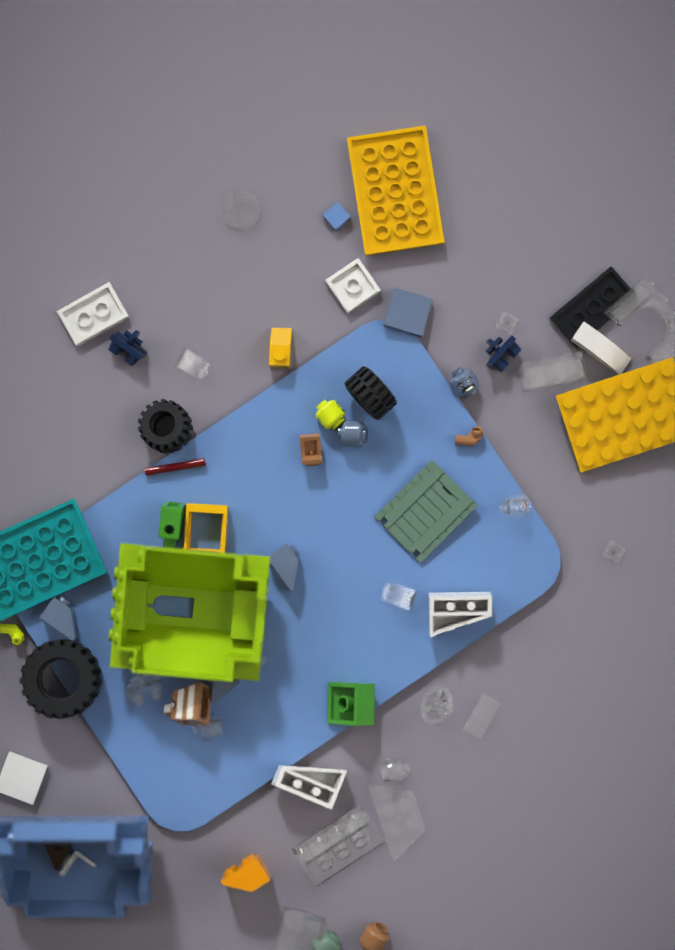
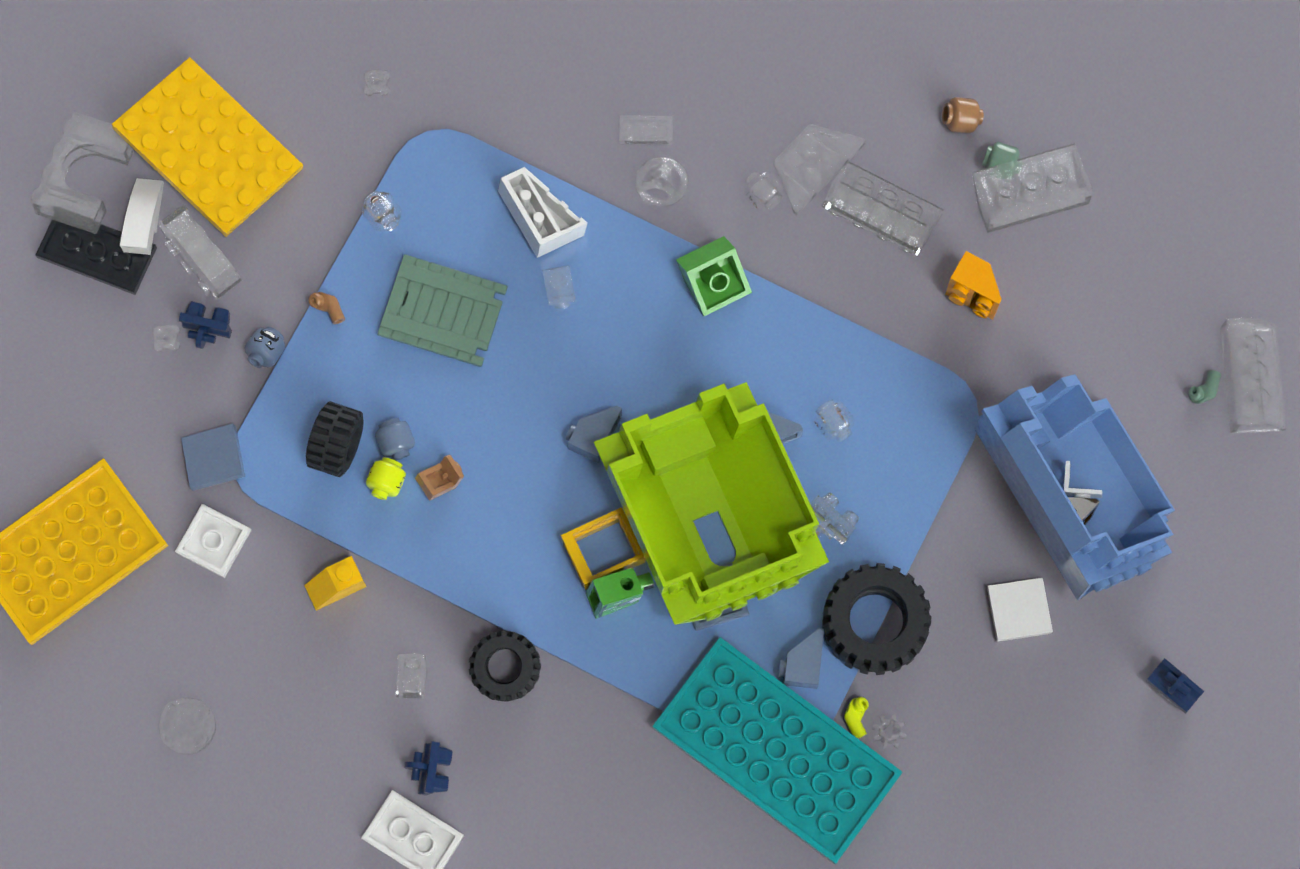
camera: 120 degrees left, 10 degrees down
(175, 467) = (548, 629): dark red bar -> none
(190, 705) = (820, 450): medium nougat torso -> none
(311, 783) = (830, 271): white wedge -> none
(336, 216) = (135, 605): medium blue tile -> none

